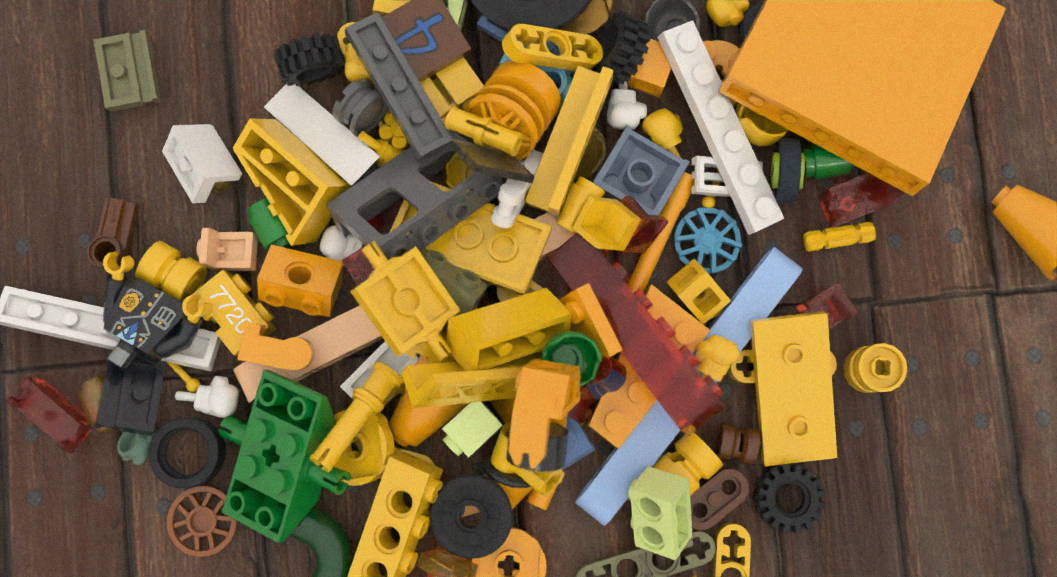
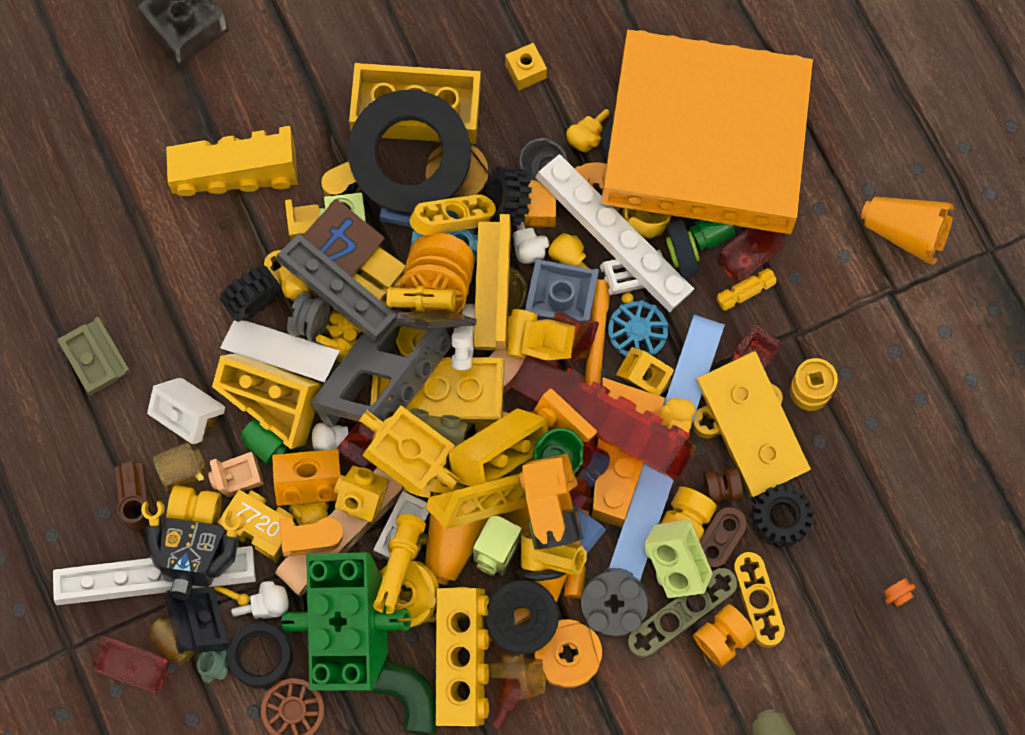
camera: 15 degrees left, 10 degrees down
(172, 221) = (179, 466): none -> clear yellow brick
(291, 322) = (309, 512): none -> yellow piece
(343, 323) = (361, 493): none -> yellow brick
(572, 549) = (628, 589): none -> dark grey plate

